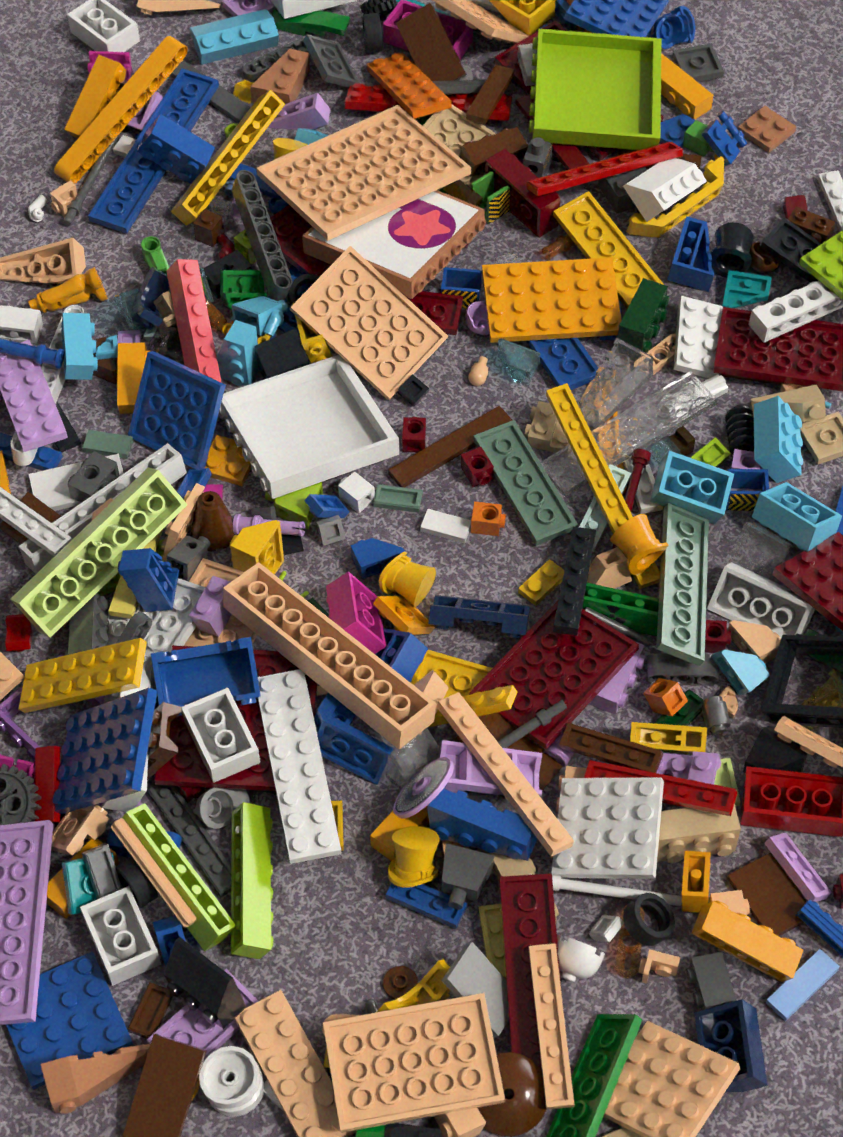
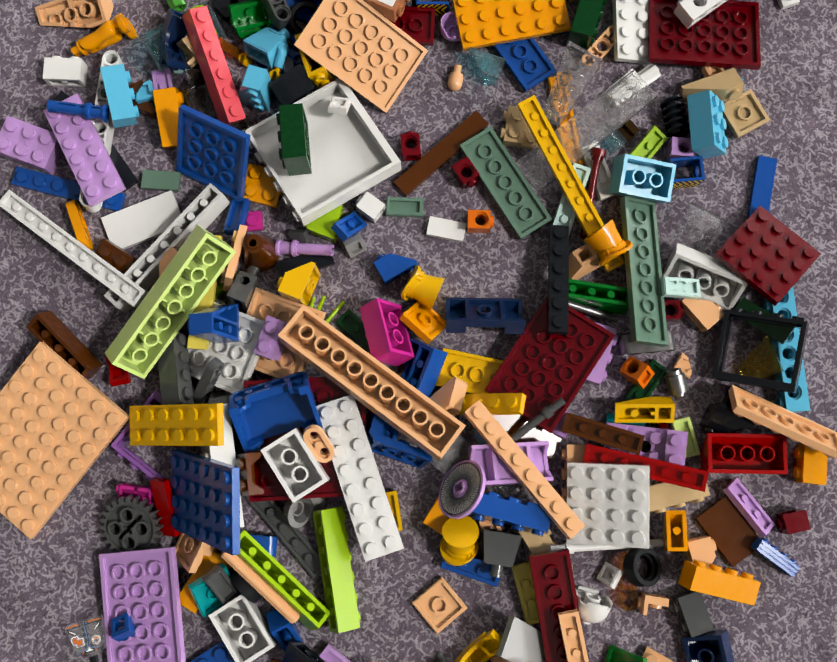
camera: 10 degrees left, 25 degrees up
(92, 476) = (153, 209): dark grey brick -> none
(253, 711) = (317, 442): none -> light nougat plate
(276, 402) = (294, 139): none -> dark green brick
(334, 378) = (339, 105): none -> white tile
(378, 943) = (439, 605): none -> light nougat tile
(399, 981) = (459, 634): reddish brown piece -> none
(413, 390) = (404, 103): black plate -> none
(542, 582) = (528, 273): yellow plate -> none
(728, 605) = (680, 287): none -> light aqua plate
(741, 669) = (694, 342): medium azure slope -> none
(796, 516) = (728, 197): medium azure brick -> none
(805, 983) = (747, 614): light blue tile -> none

